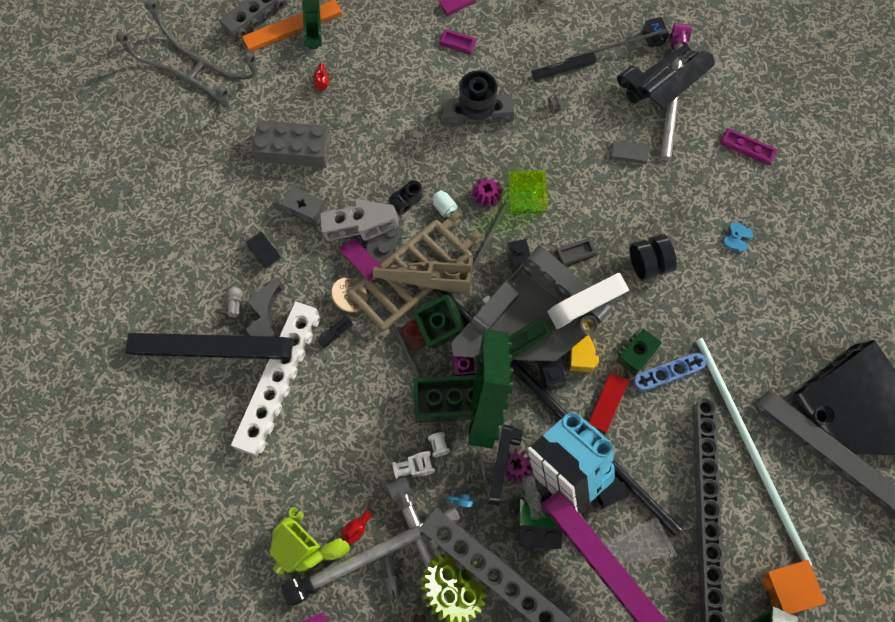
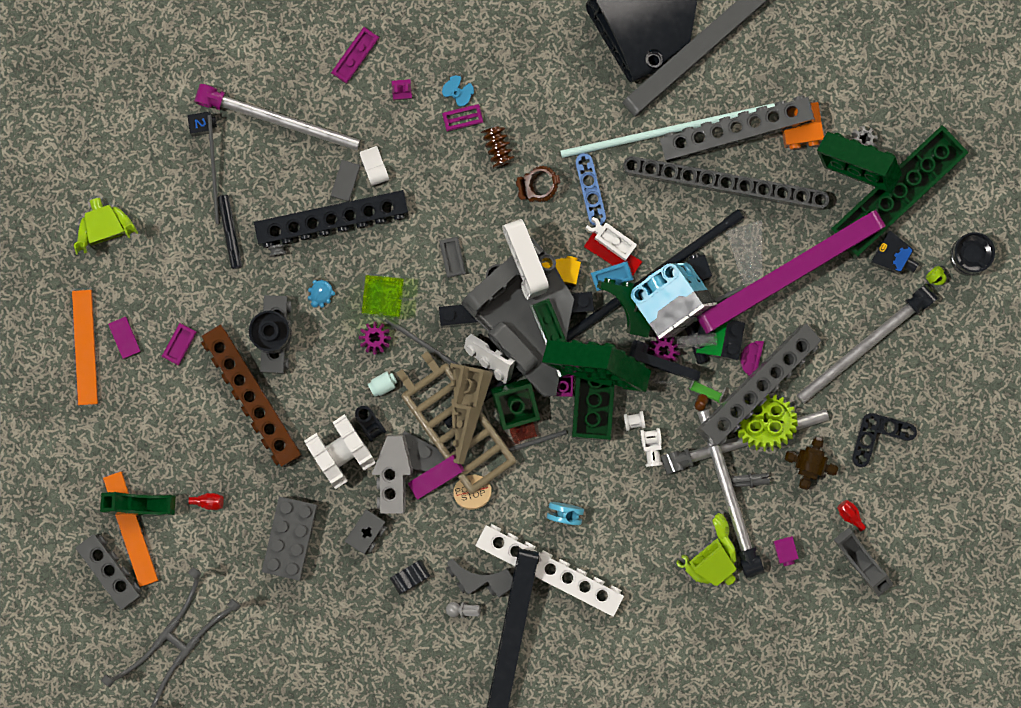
camera: 80 degrees left, 15 degrees up
(334, 332) = (508, 510): black axle -> none
(334, 384) = (565, 513): none -> medium azure head
(354, 529) = (703, 507): red piece -> none
(369, 162) = (339, 451): none -> white piece
(428, 97) = (211, 340): none -> reddish brown brick
(464, 500) = (690, 406): dark azure piece -> none
(478, 517) = (705, 394): none -> piece
(481, 292) = (501, 367): none -> white wing
(521, 144) = (320, 293): none -> dark azure piece
(525, 563) = (751, 356): none -> magenta tile
(571, 406) = (636, 321): none -> dark green arch
(586, 403) = (618, 272): none -> dark azure tile
(600, 148) = (264, 227): none -> black brick
(623, 397) = (612, 239): none -> white plate
(646, 343) = (563, 205): dark green brick -> none
(647, 175) = (374, 166): none -> white panel
(652, 257) = (473, 178): black wheel -> none
(661, 81) = (275, 131): black panel -> none
(662, 310) = (526, 189): none -> reddish brown piece
(693, 276) = (498, 146): none -> reddish brown piece
(704, 243) = (466, 124): none -> magenta tile
(726, 188) = (401, 89): none -> magenta tile
(794, 565) = (670, 140): none -> dark grey brick

